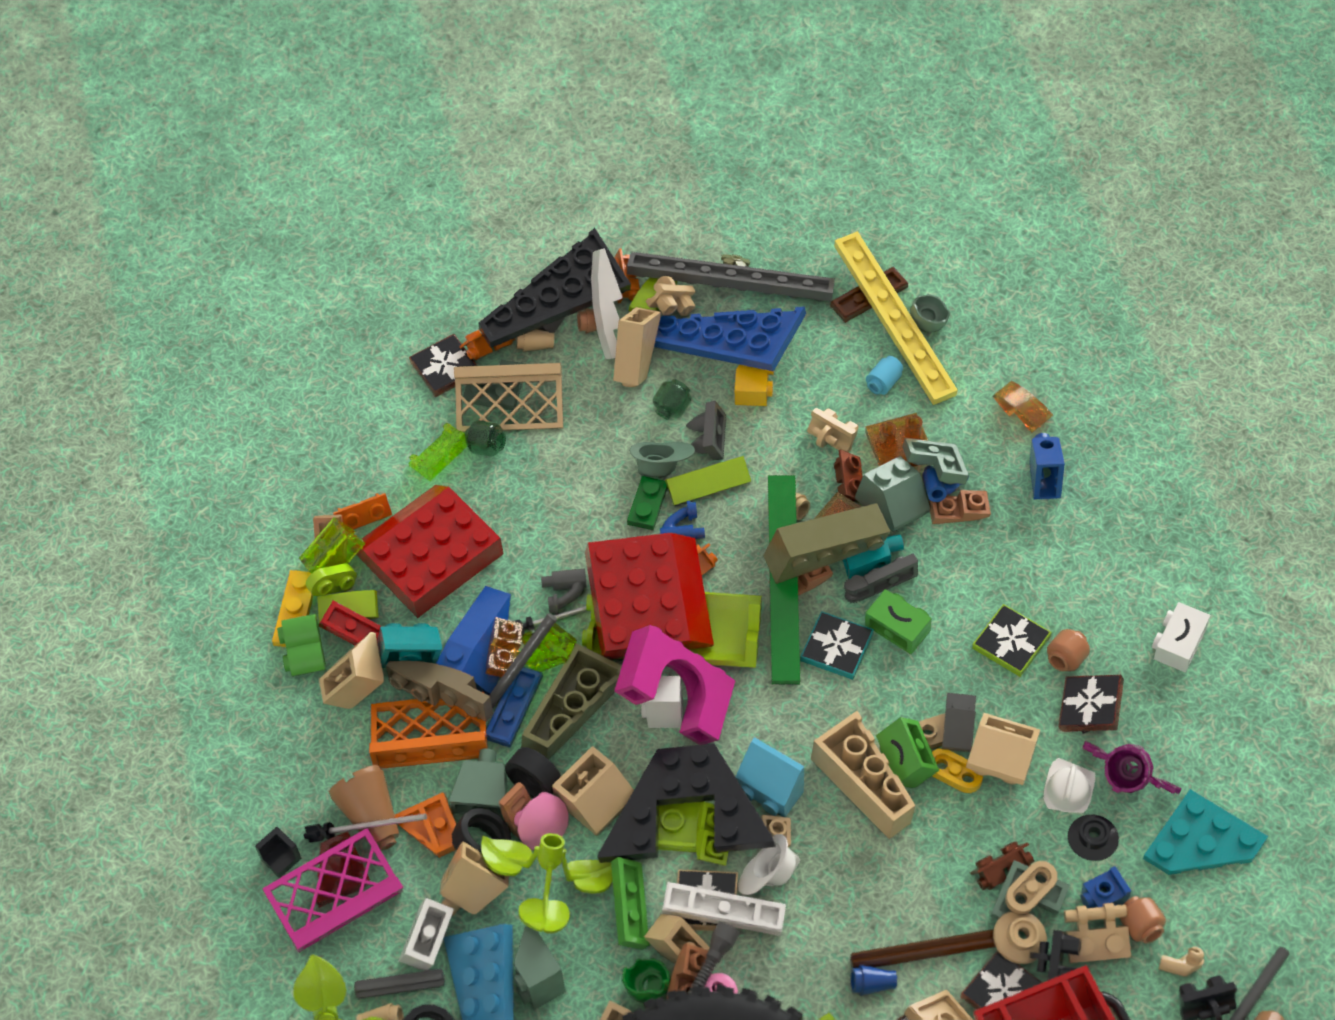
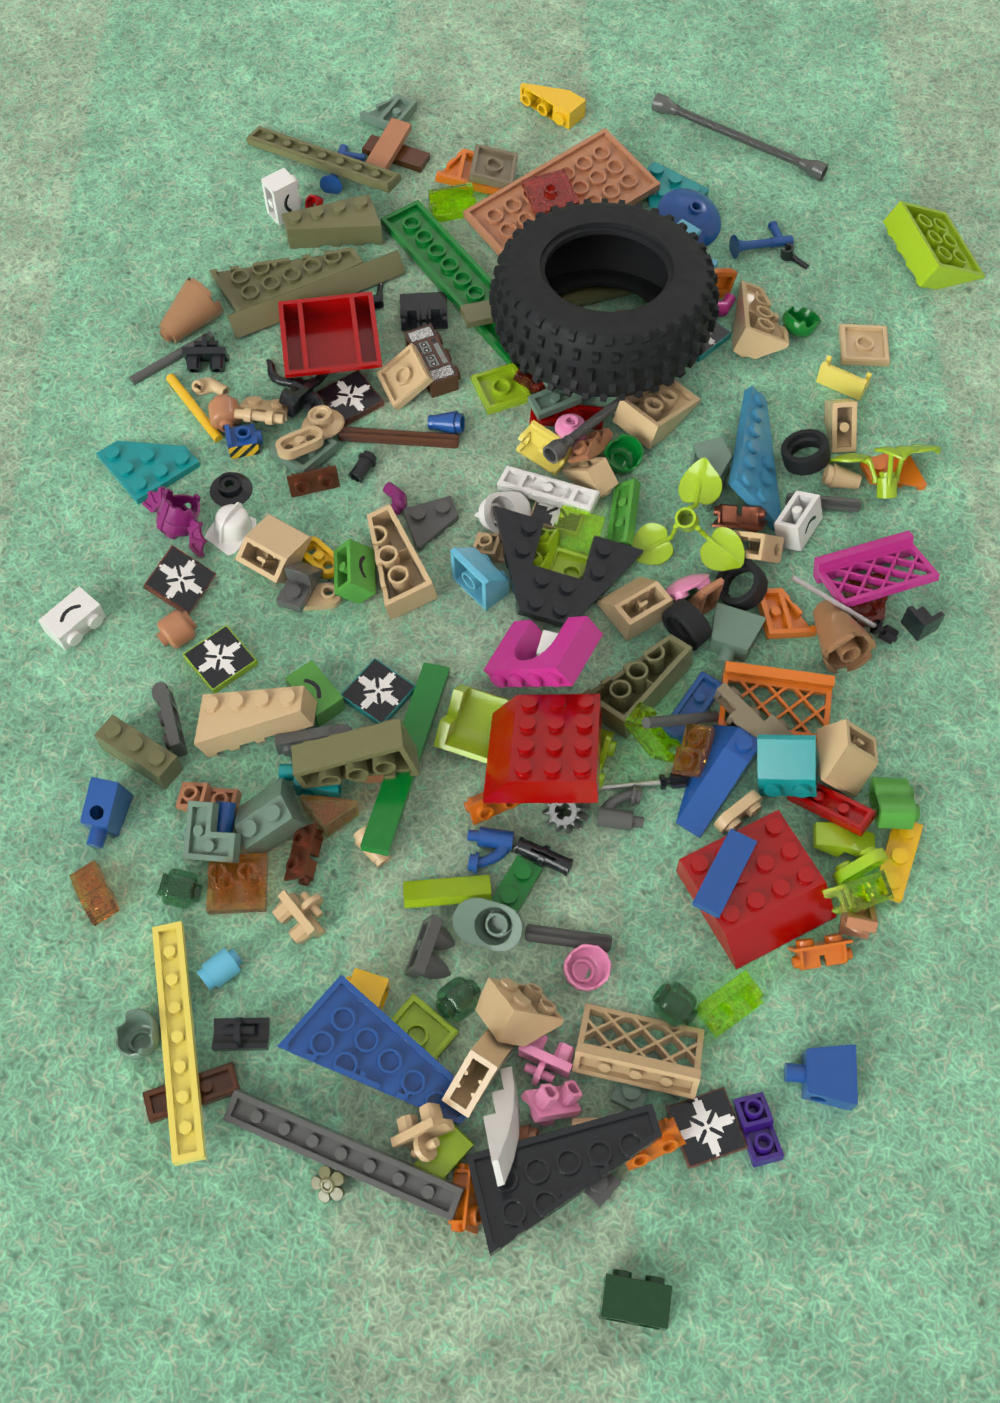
camera: 170 degrees left, 5 degrees up
(349, 417) = (827, 1075): none -> blue torso
(401, 372) = (758, 1129): none -> dark purple slope
(455, 604) = (732, 817): none -> tan plate
(456, 524) = (724, 873): none -> blue tile
(480, 244) = (636, 1300): none -> dark green brick
(483, 916) = (749, 520): none -> copper hinge
(568, 439) = (578, 963): none -> bright pink hair
(573, 342) = (553, 1102): none -> bright pink hips
(588, 373) = (558, 1063): none -> bright pink hips
(589, 472) = (566, 937): none -> dark grey axle
(616, 392) = (516, 1011): none -> tan slope
(625, 529) = (560, 864): none -> black pin
(676, 868) = (578, 529): none -> clear neon green piece
(701, 375) = (425, 1026): none -> lime tile
(748, 973) = (533, 441): none -> light yellow hinge
(844, 331) = (241, 1034): none -> black hips
(850, 850) = (430, 520): none -> dark grey wing
(894, 866) = (399, 498): none -> magenta arm
(946, 571) = (250, 716): none -> tan wedge
(948, 424) = (179, 888): none -> clear green head
(950, 900) = (363, 465): none -> black pin
(1031, 565) = (169, 718): none -> dark grey hinge
(1043, 524) = (139, 752): none -> olive brick
(1199, 939) = (193, 407): none -> yellow bar

